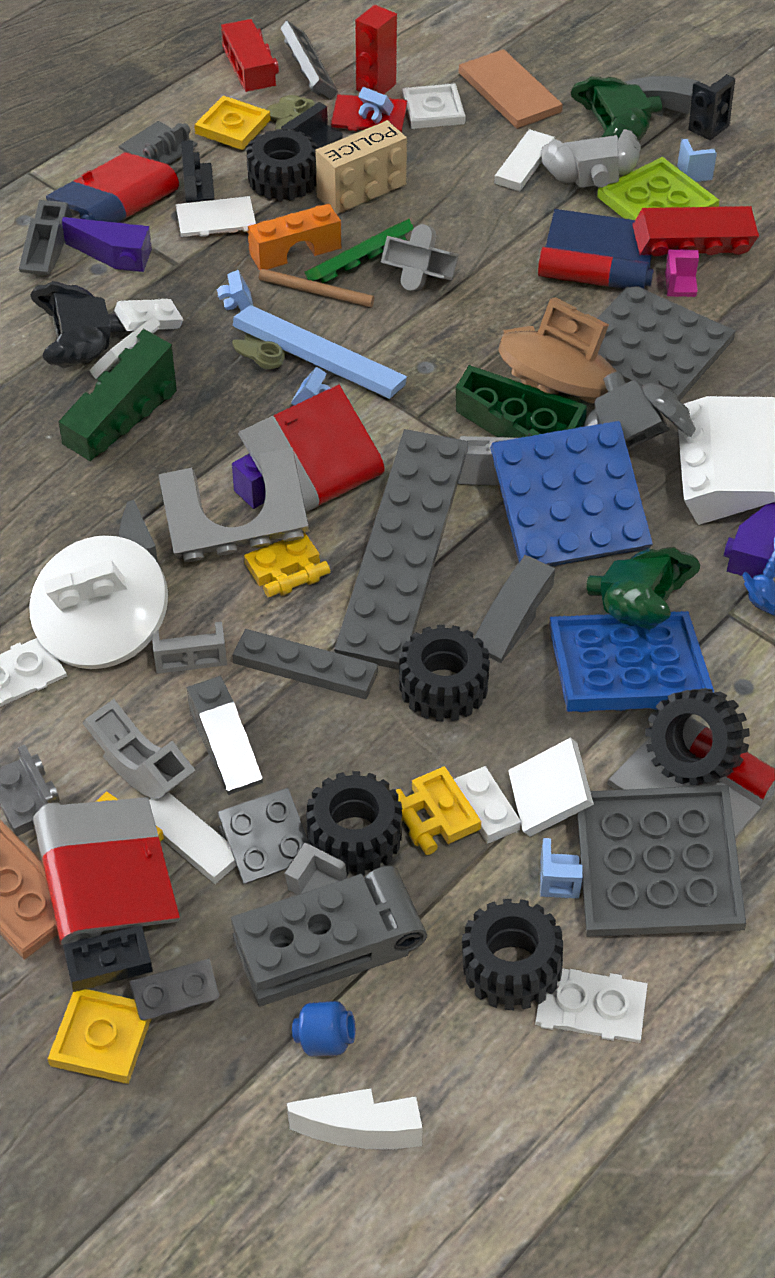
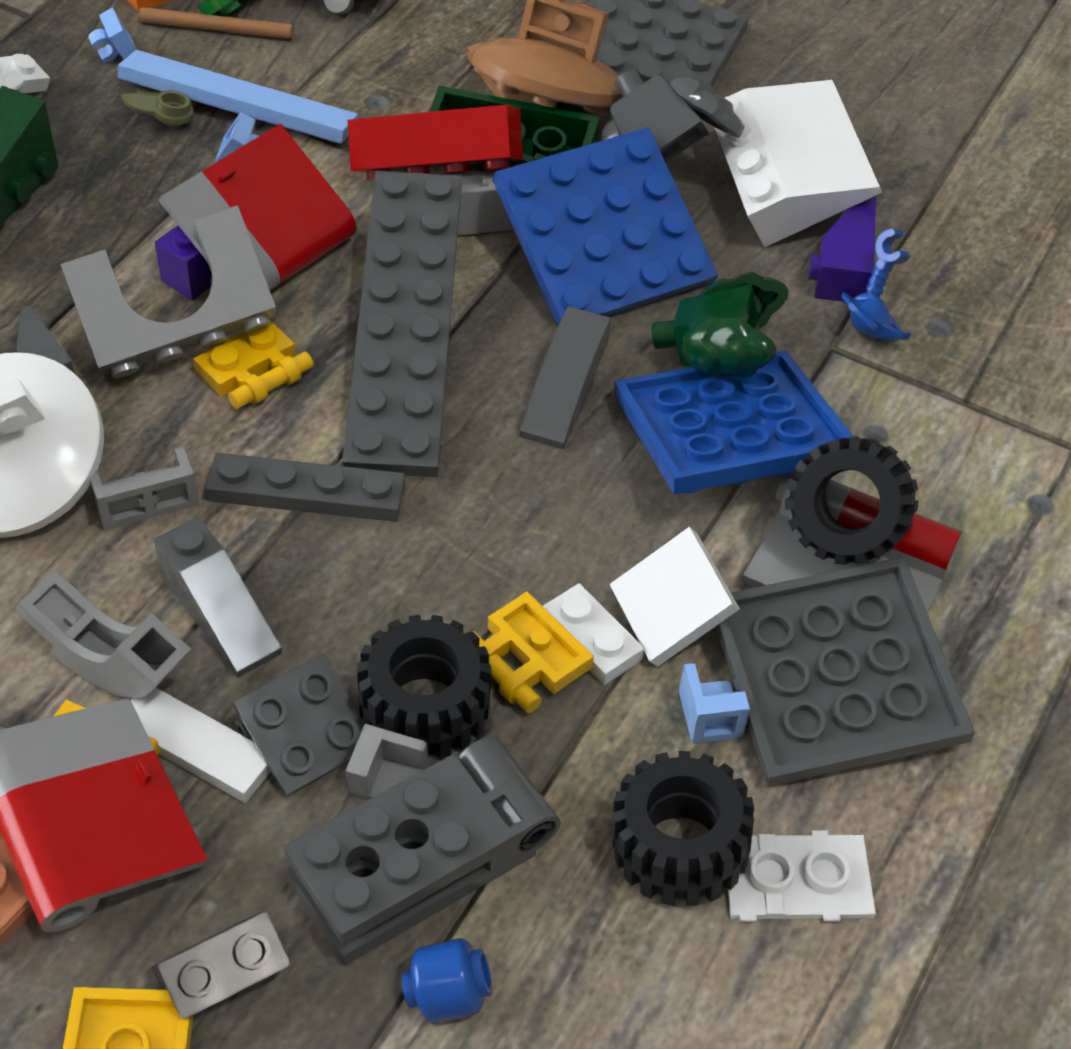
camera: 15 degrees left, 0 degrees up
(107, 958) = (115, 937): black bracket -> none
(439, 694) = (496, 498): black tyre -> none
(457, 408) = (436, 140): none -> red brick

